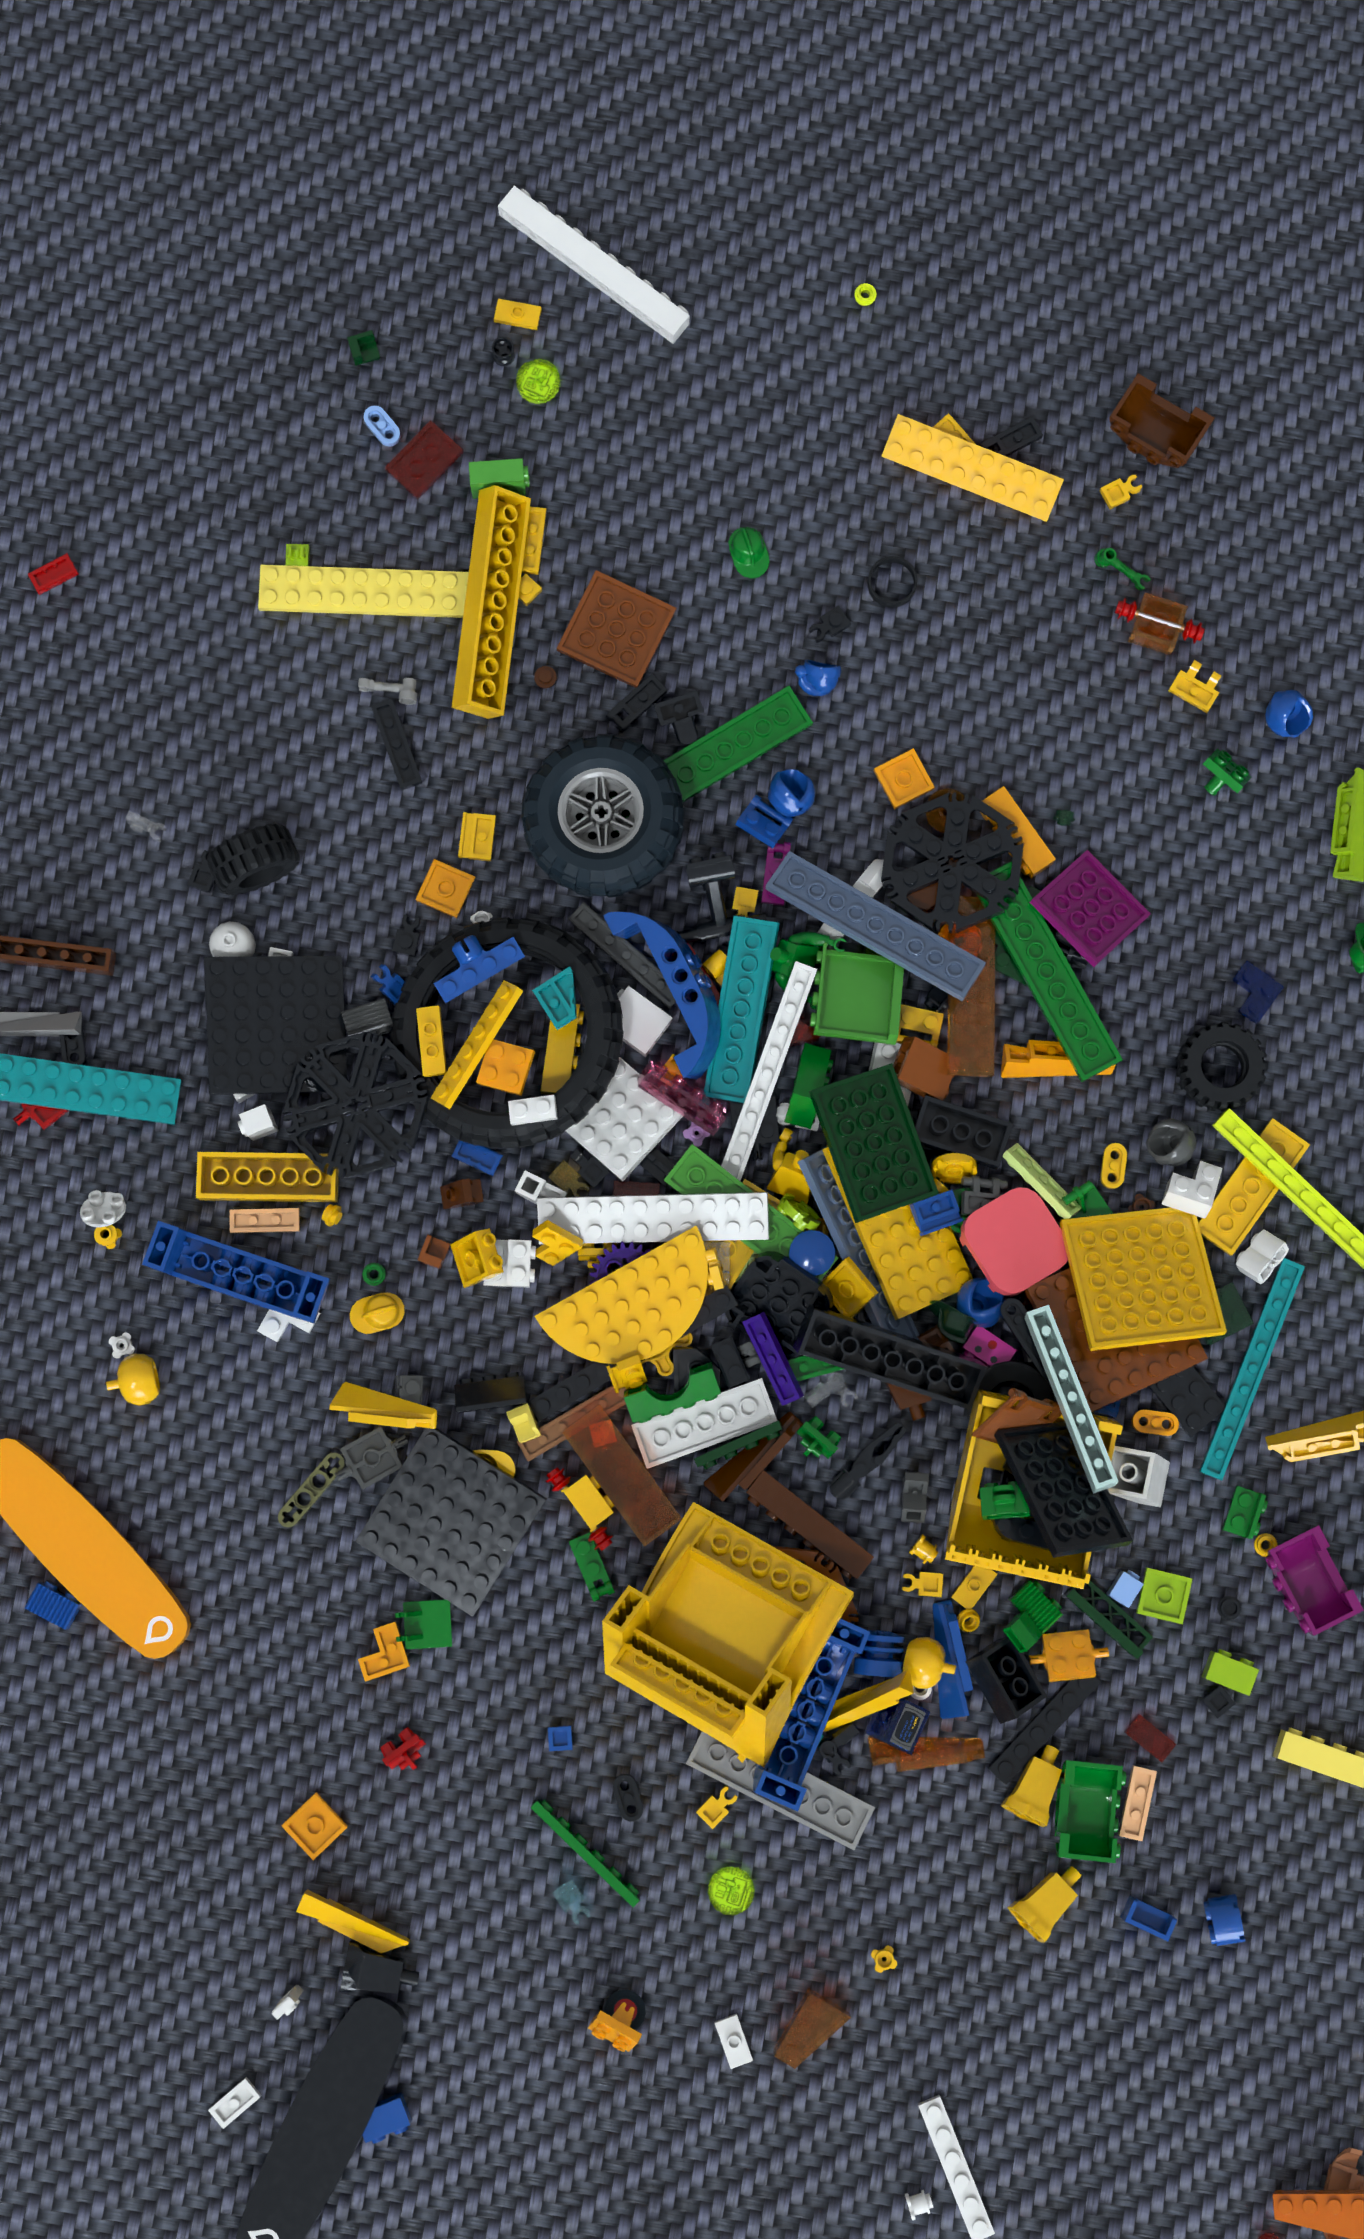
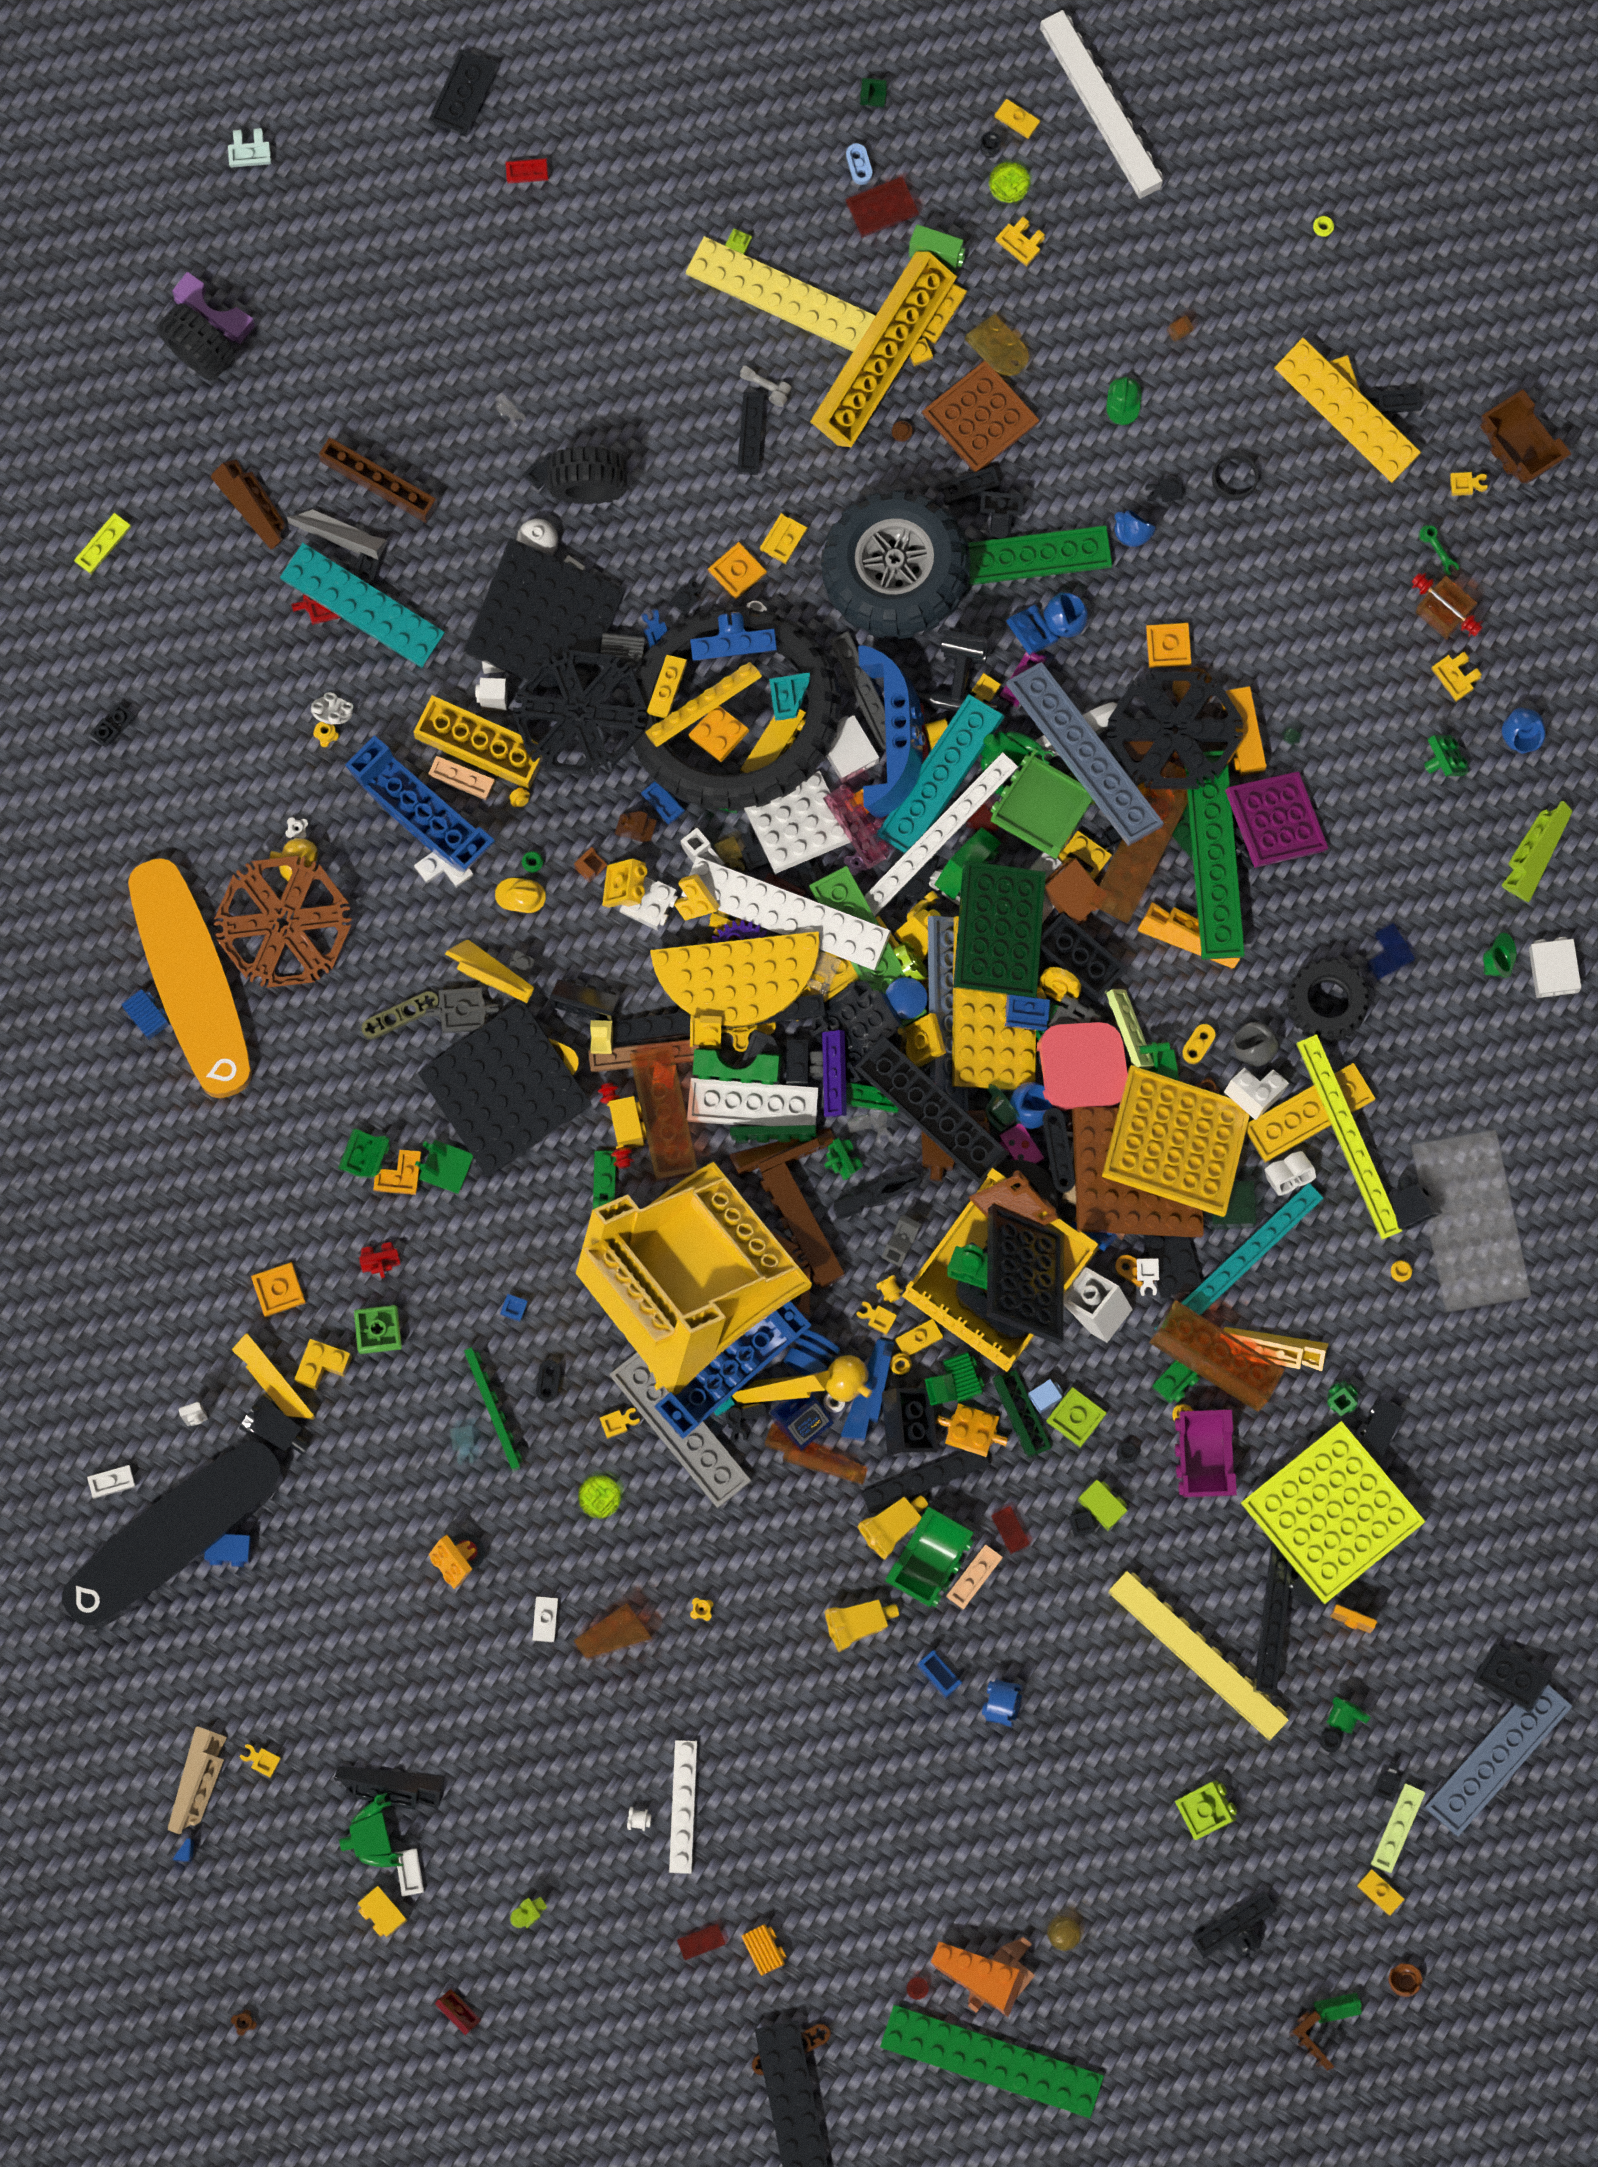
camera: 30 degrees right, 5 degrees down
(131, 1460) = (263, 922): none -> dark orange plate
(340, 1651) = (364, 1154): none -> green bracket
(388, 1879) = (320, 1358): none -> yellow brick
(429, 1838) = (366, 1321): none -> bright green brick
(532, 1110) = (725, 777): white plate -> none
(574, 439) = (1017, 244): none -> yellow plate
(602, 550) = (998, 346): none -> clear yellow plate
(715, 1274) = (816, 980): yellow plate -> none
(772, 456) = (1180, 328): none -> clear orange brick
(1071, 1399) = (1066, 1206): light aqua brick -> none
(1170, 1420) = (1147, 1271): none -> white plate
(1277, 1475) = (1216, 1356): none -> clear orange brick

